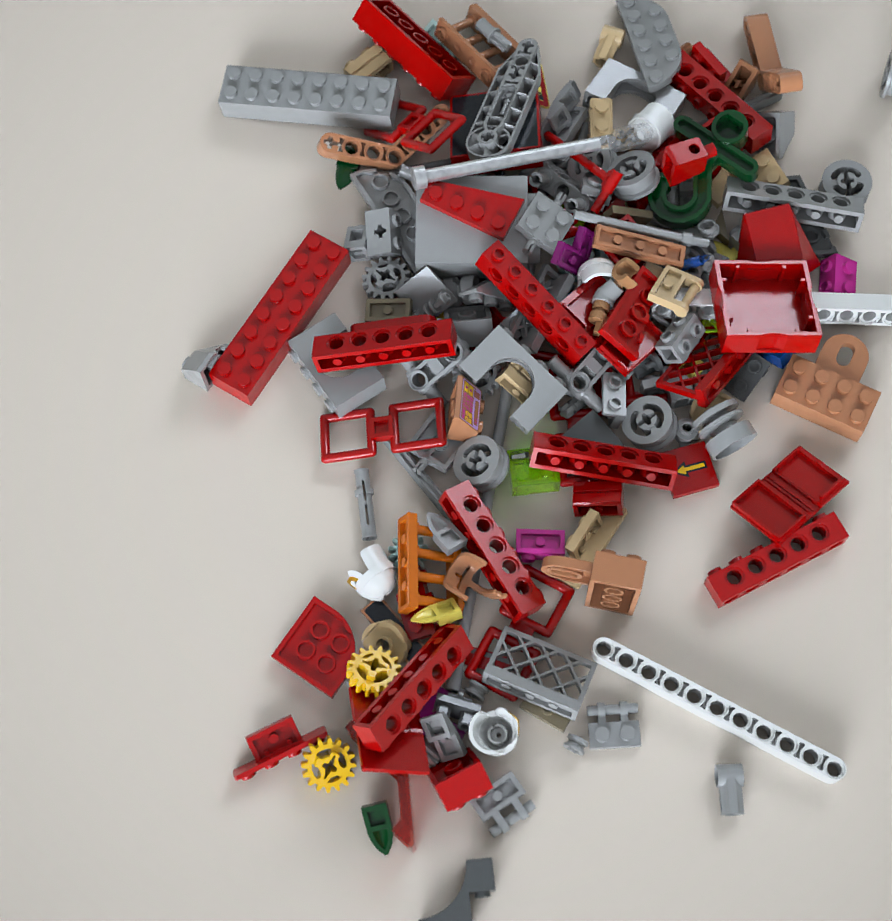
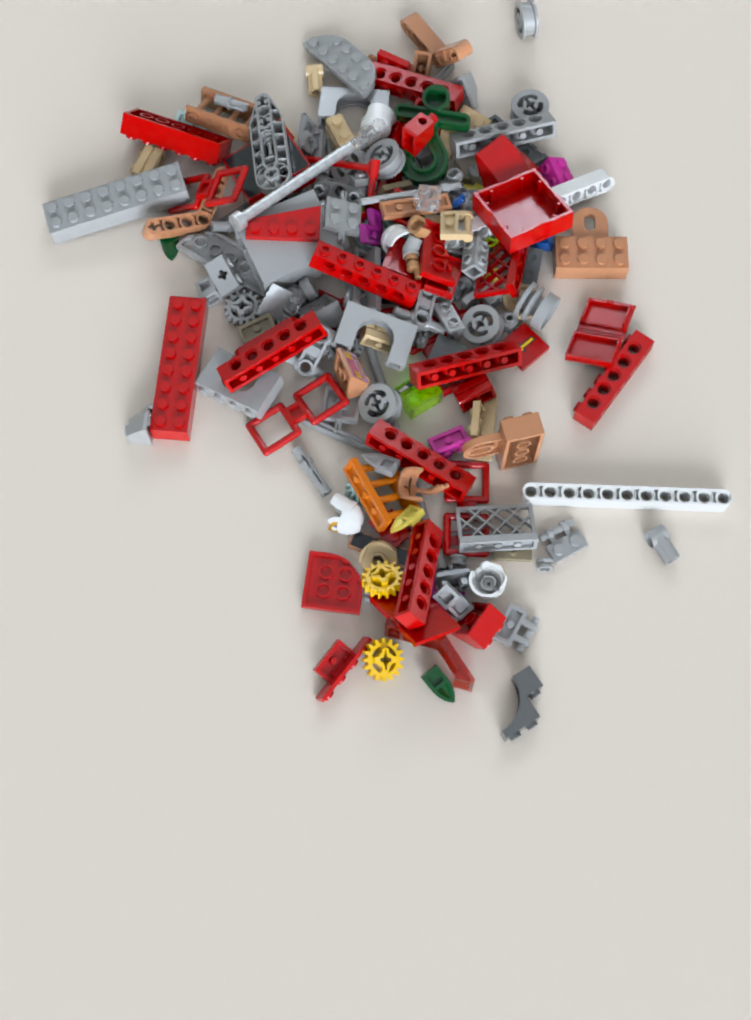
camera: 30 degrees left, 0 degrees up
(487, 294) = (326, 285): light grey slope -> none
(662, 237) = (427, 198): none -> clear brick

